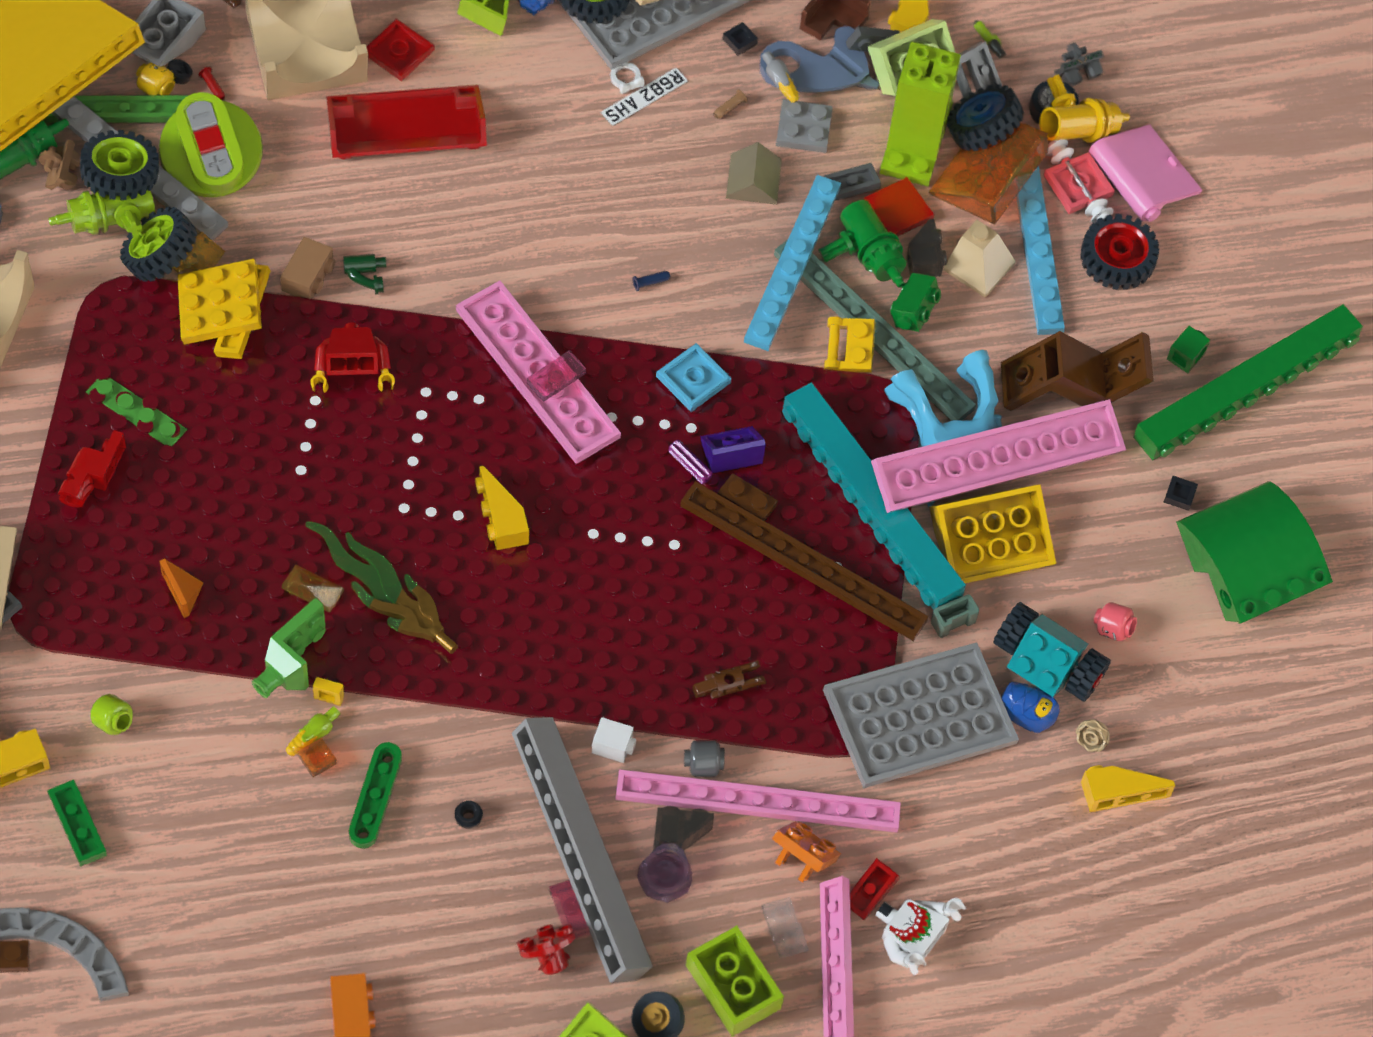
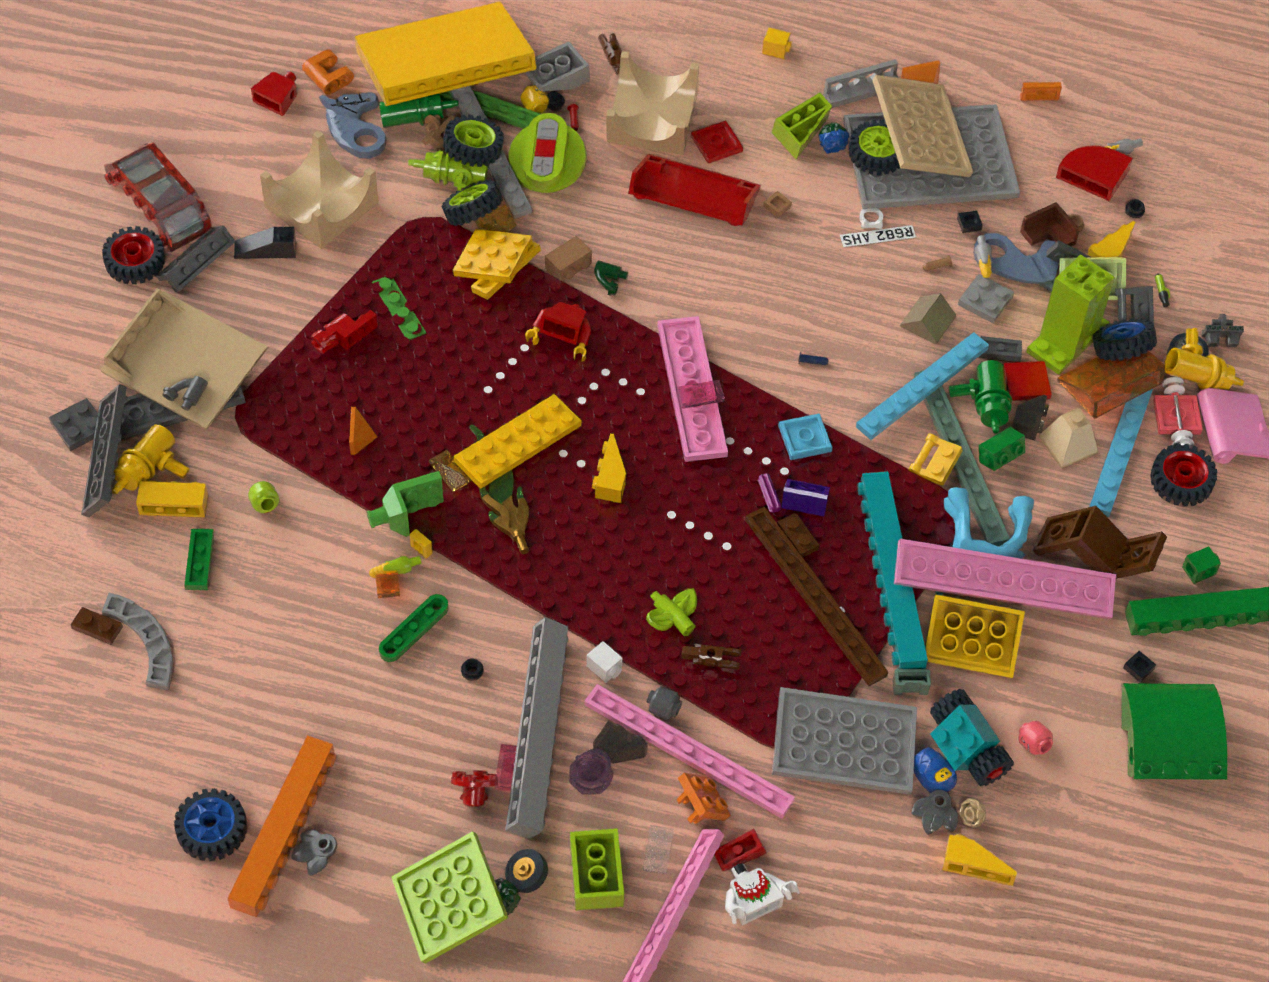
camera: 30 degrees right, 5 degrees down
(373, 520) = (517, 441): none -> yellow plate
(512, 102) = (777, 204): none -> medium nougat plate
(659, 647) = (673, 611): none -> lime plant
(1053, 755) = (936, 815): none -> dark grey plate

